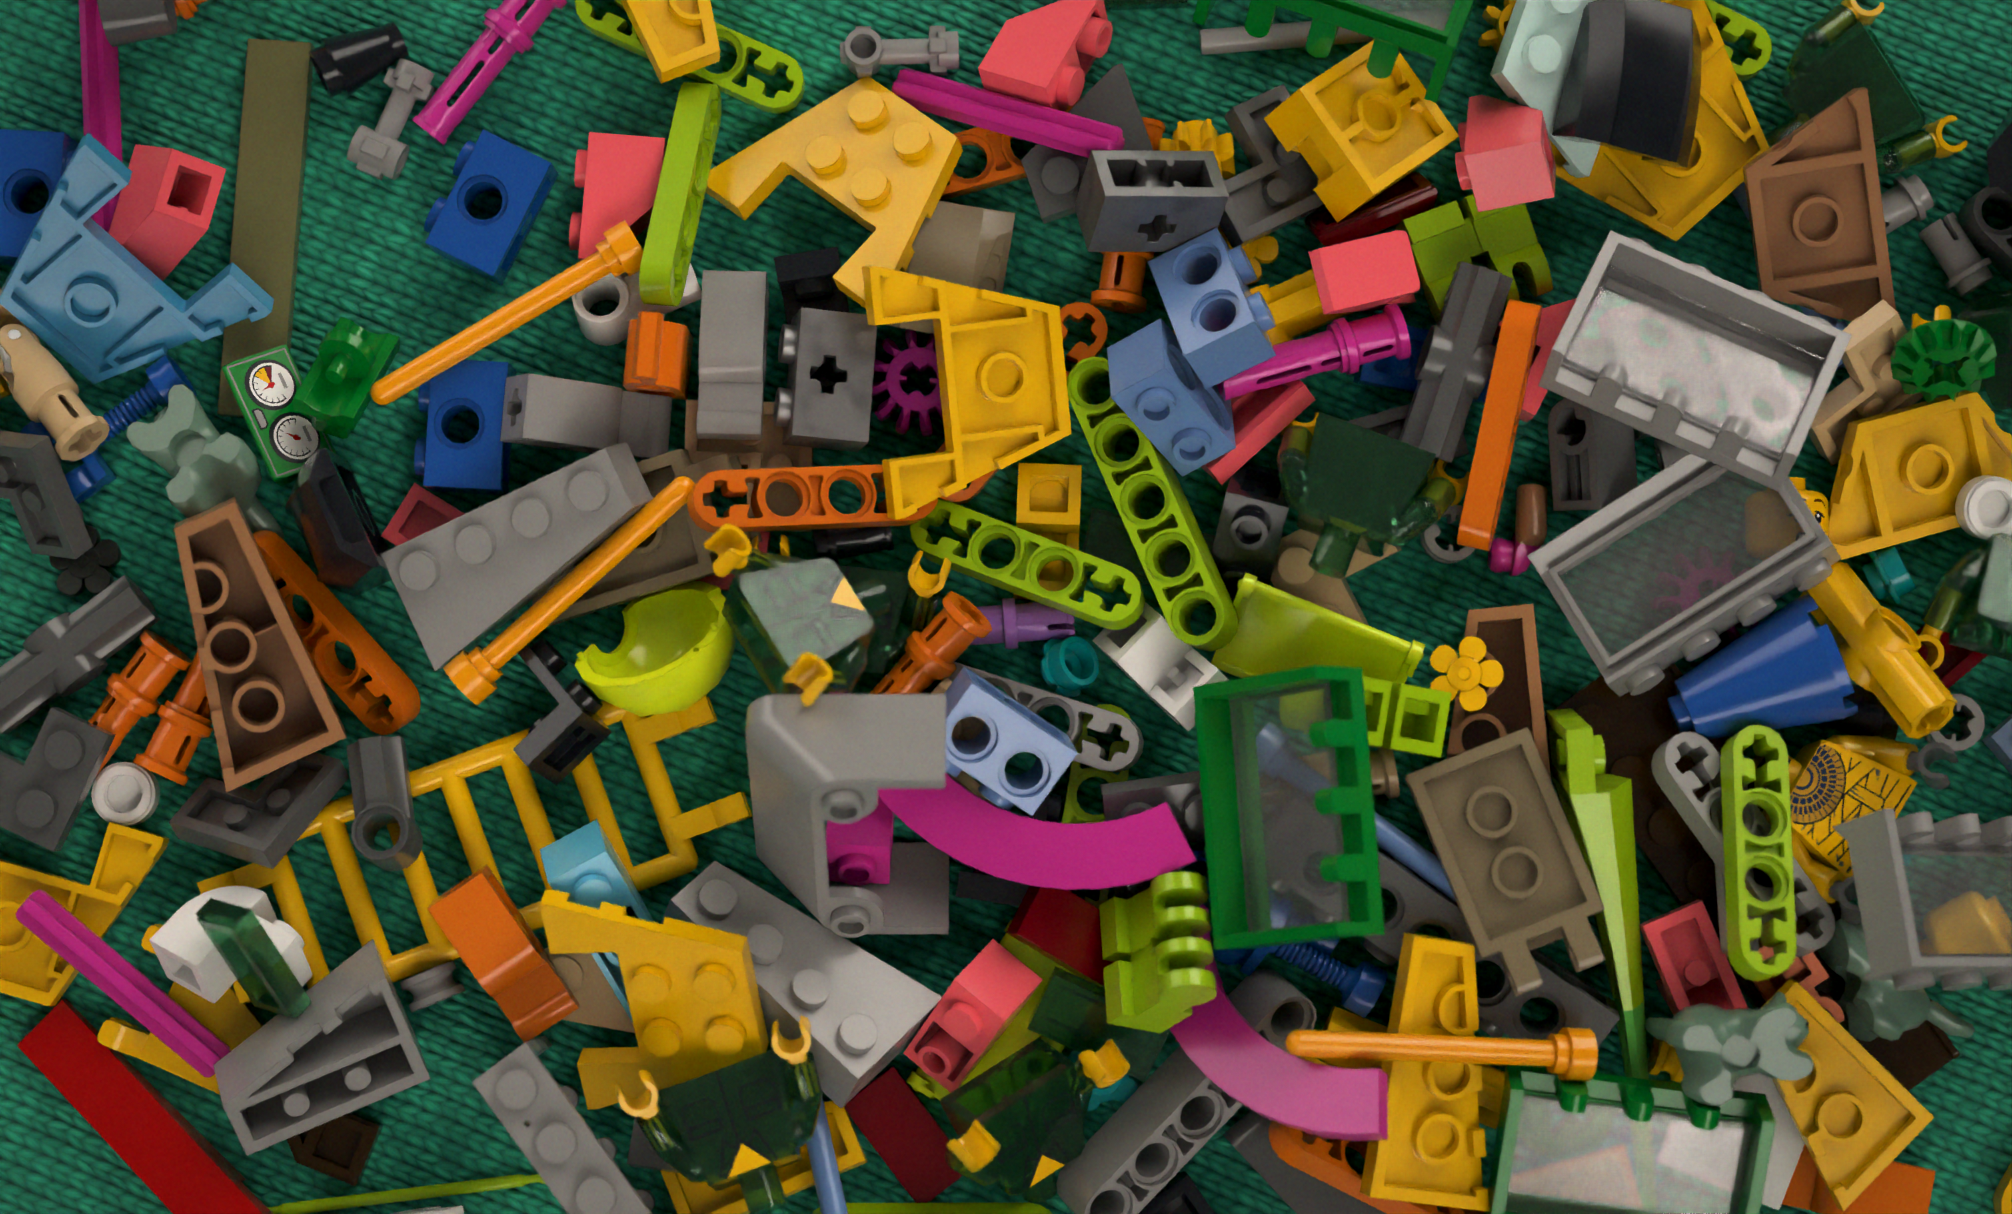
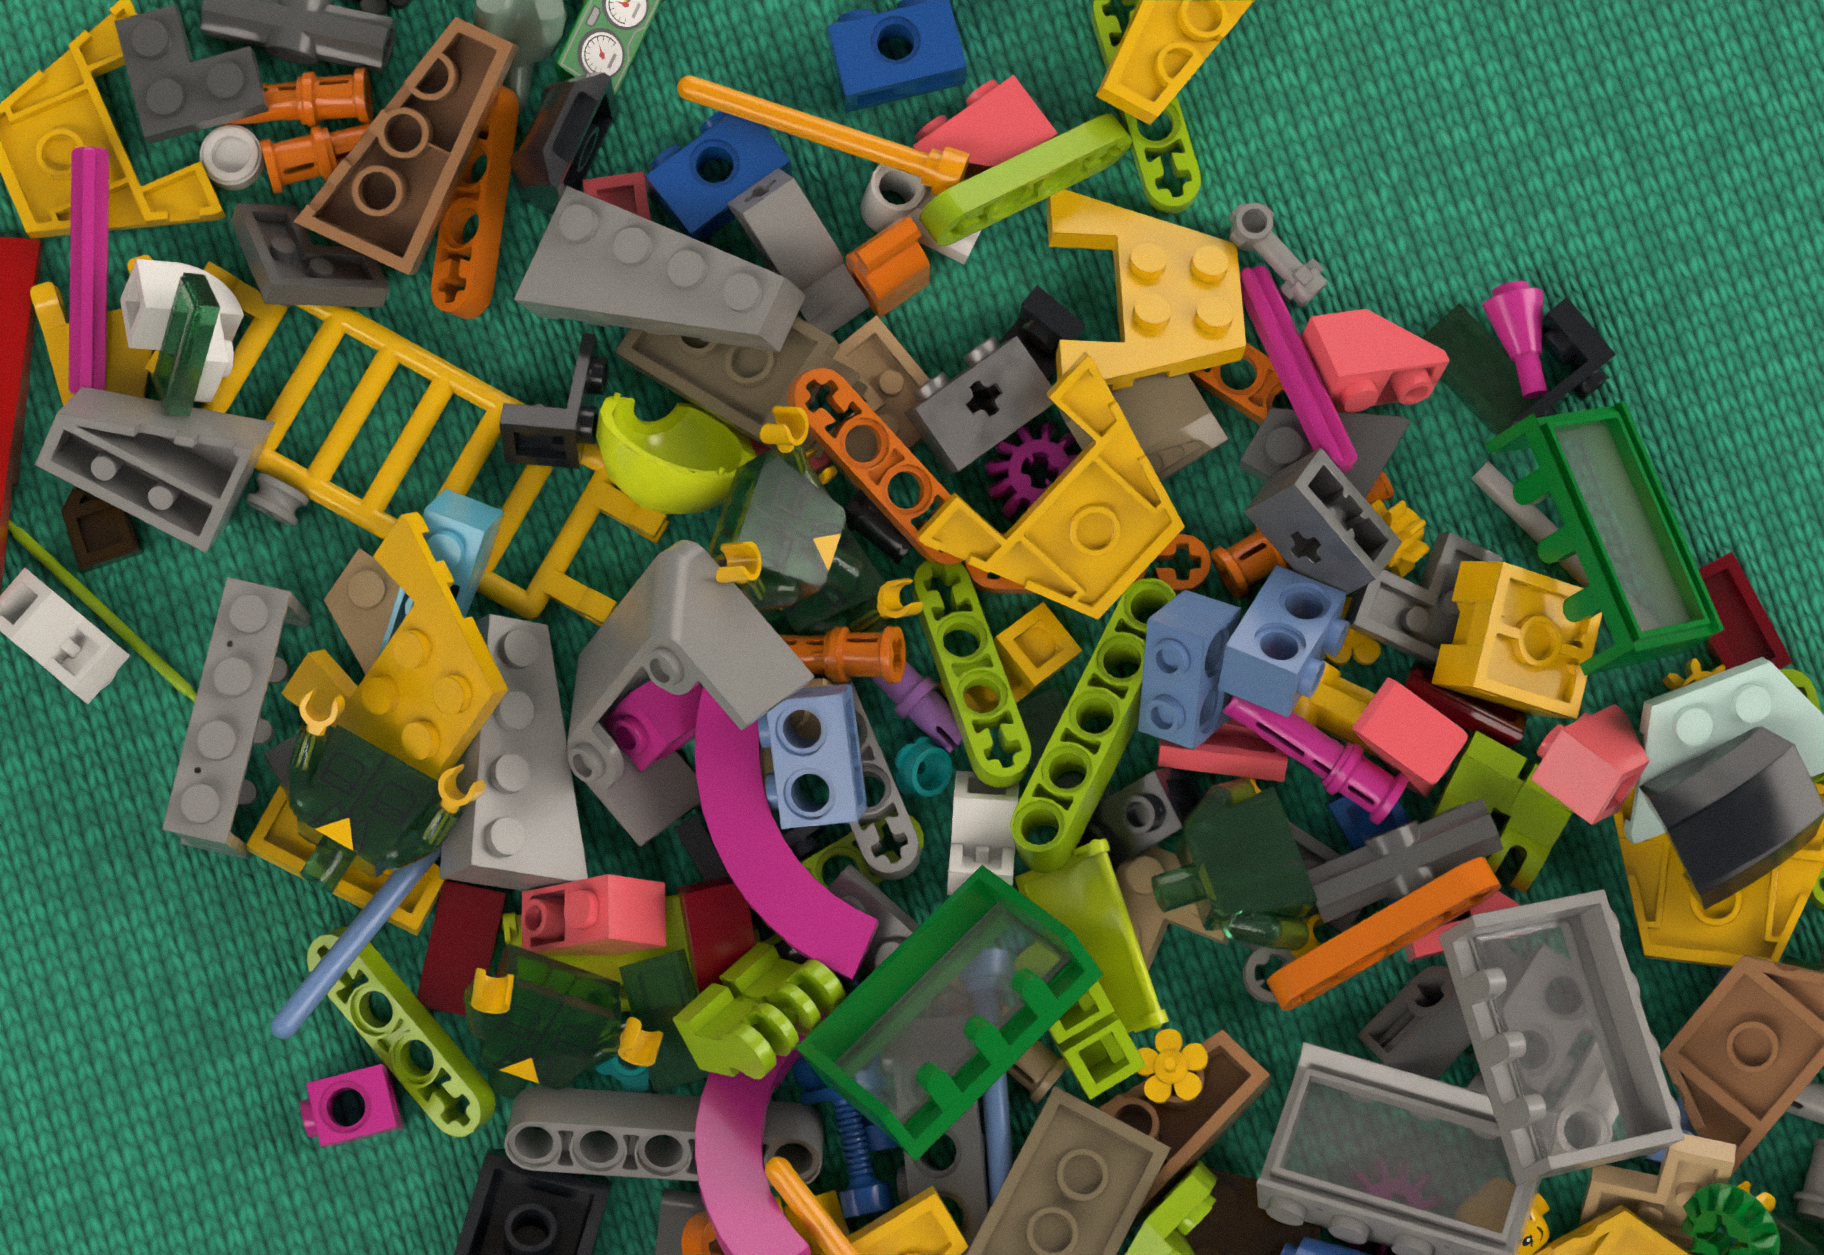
camera: 45 degrees right, 5 degrees down
(342, 377) = (673, 48): green hips -> none
(383, 797) = (386, 342): dark grey piece -> none
(478, 670) = (541, 331): light orange piece -> none
(503, 953) = (345, 527): orange piece -> none
(732, 354) = (940, 319): light grey piece -> none
(1528, 534) = (1326, 1031): arm -> none

